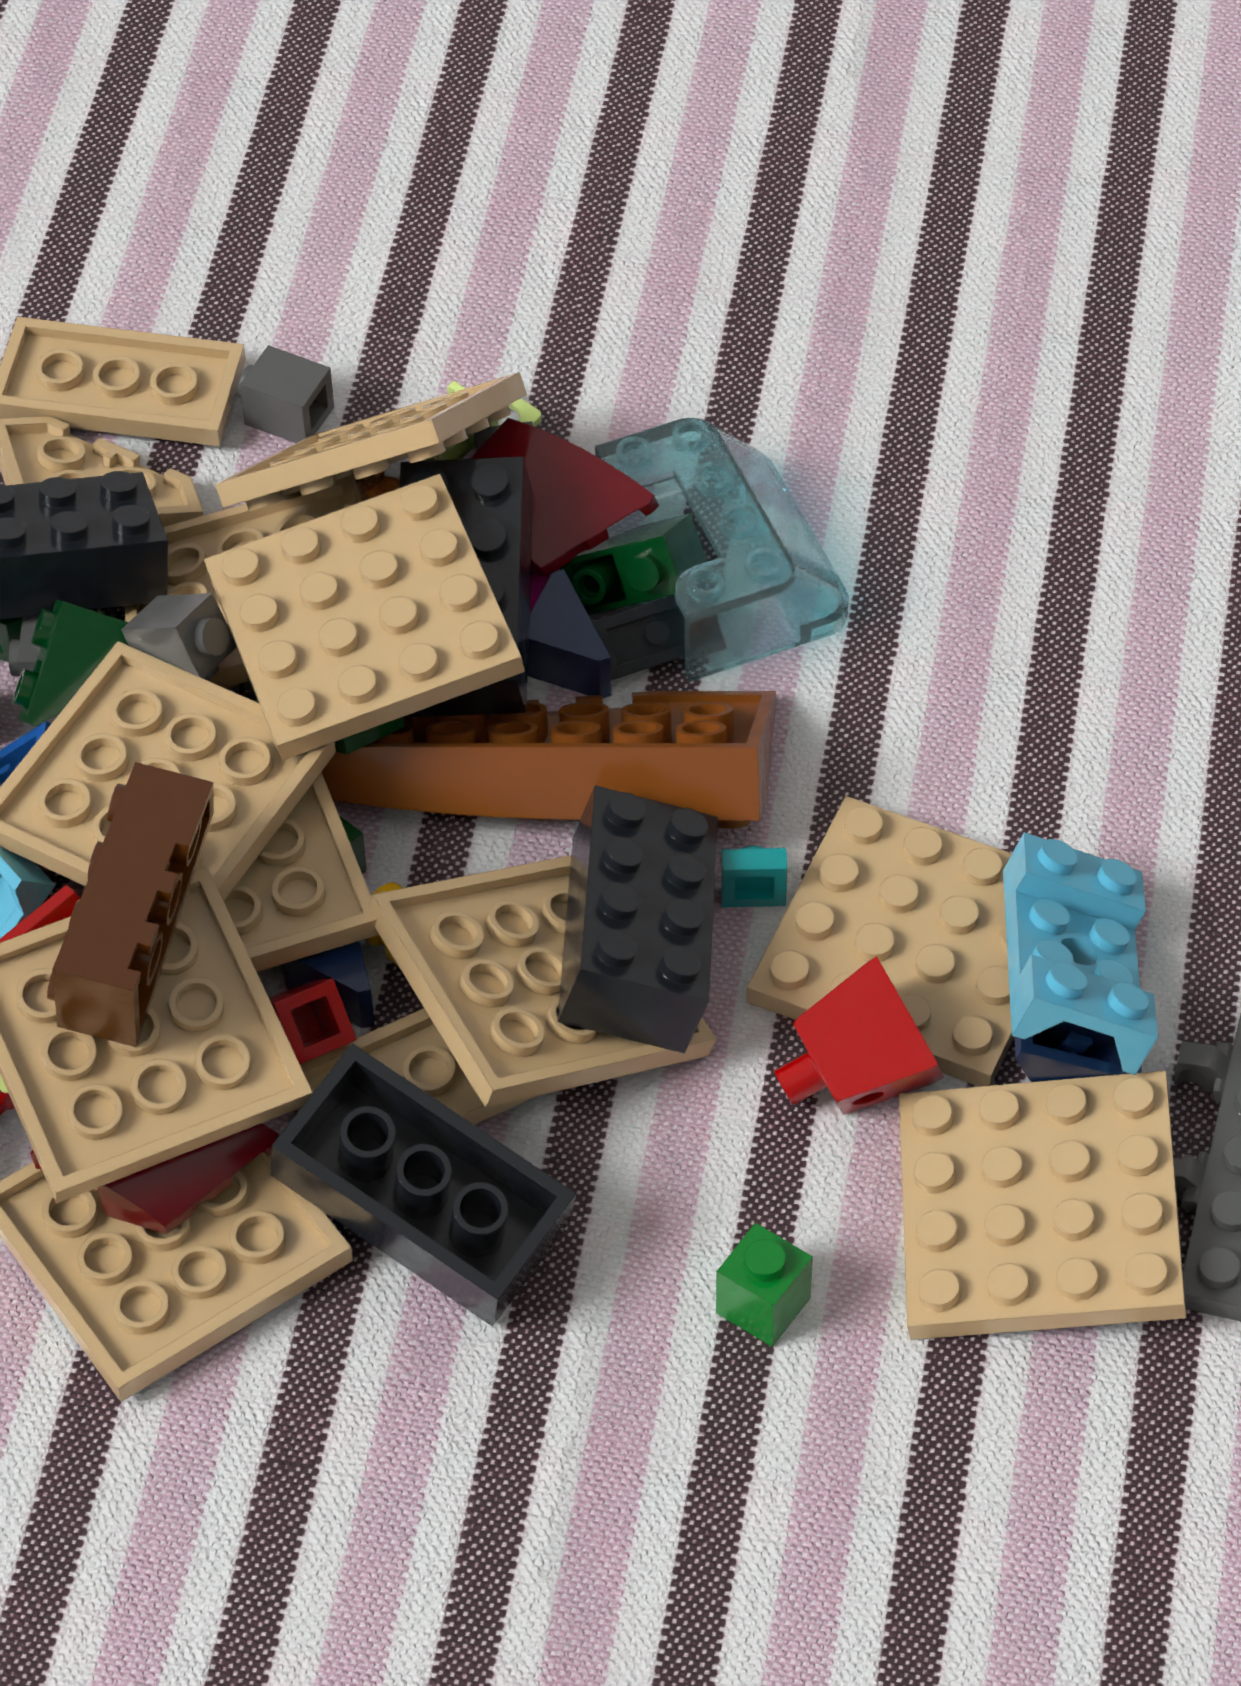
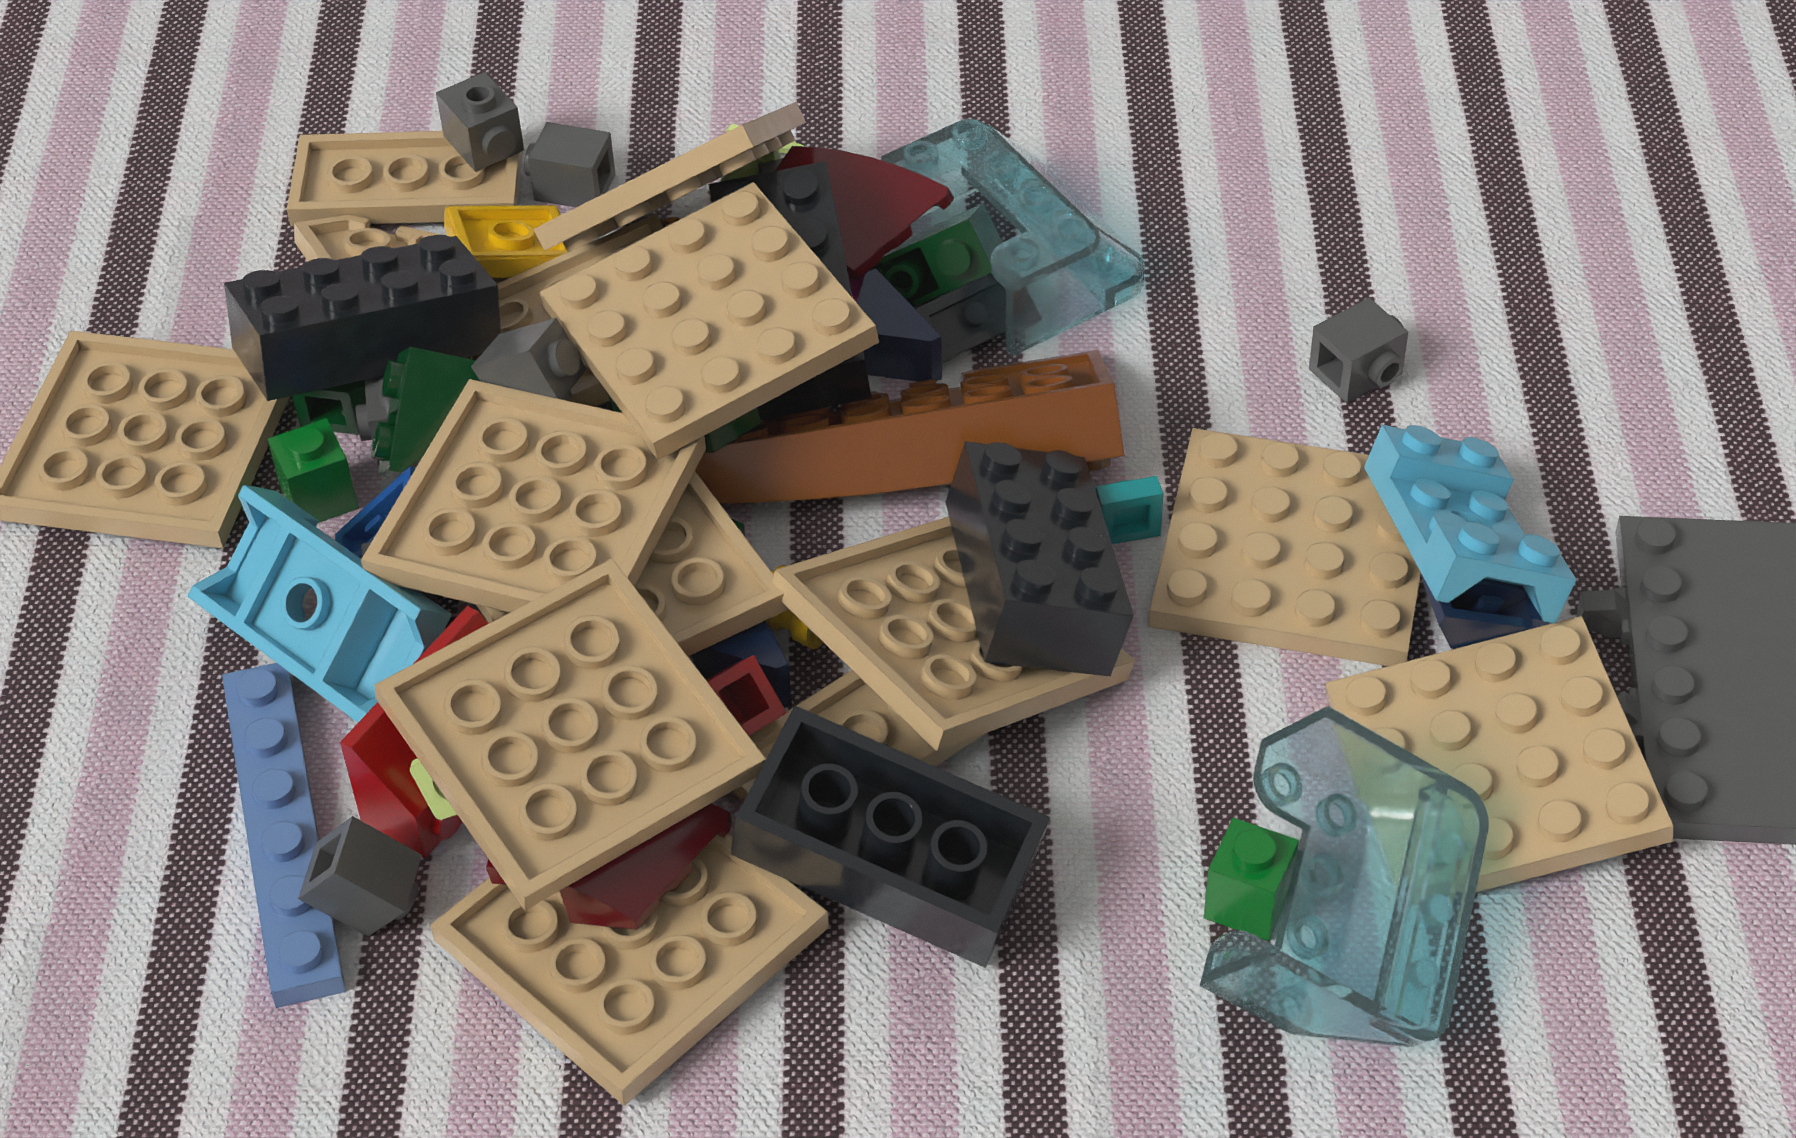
camera: 10 degrees left, 5 degrees down
(131, 904) = (547, 602): reddish brown wedge -> none
(187, 465) = (503, 236): none -> yellow tile
(201, 347) = (480, 121): none -> dark grey brick
(859, 1045) = (1280, 641): red torso -> none
(870, 1324) = (1373, 893): none -> clear light blue windscreen
(1040, 736) = (1358, 350): none -> dark grey brick

